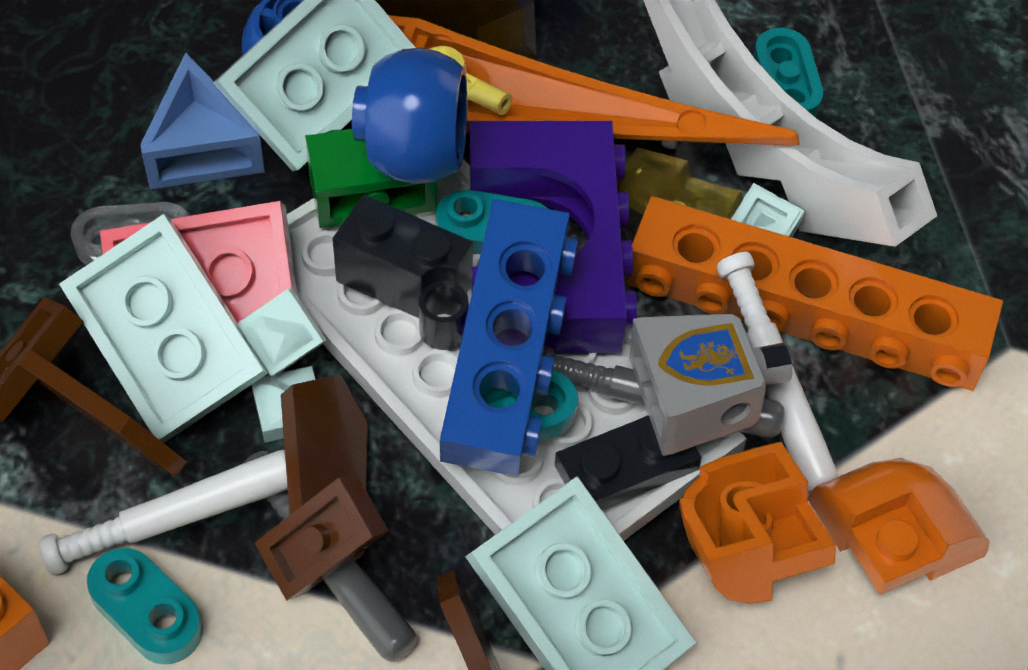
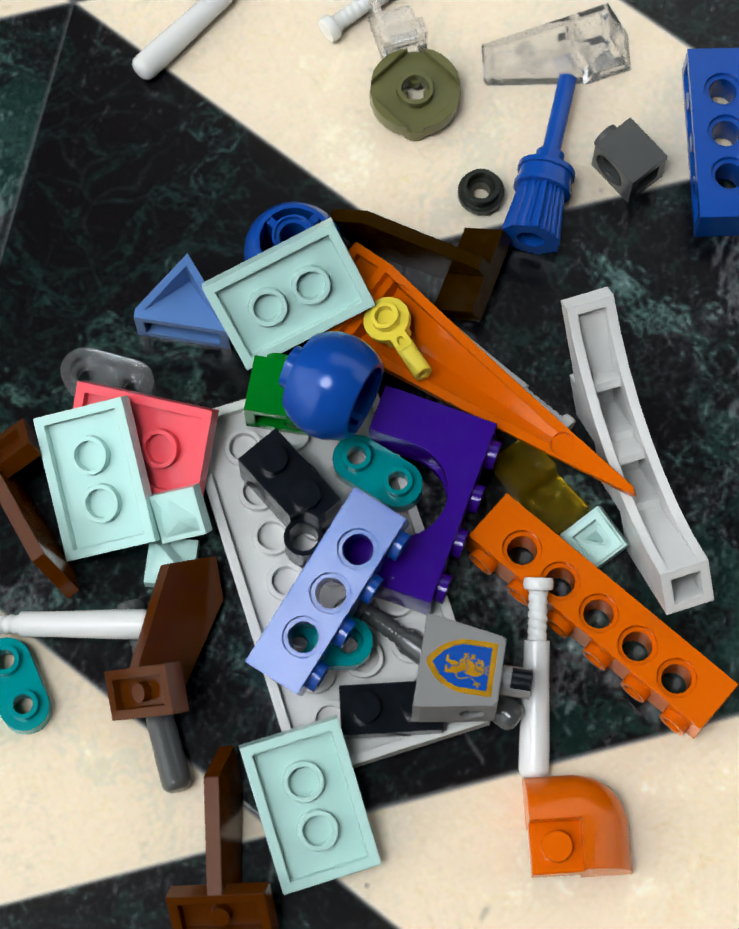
camera: 25 degrees right, 15 degrees up
(754, 523) = (458, 791): orange brick -> none
(797, 68) = (680, 411): teal plate -> none

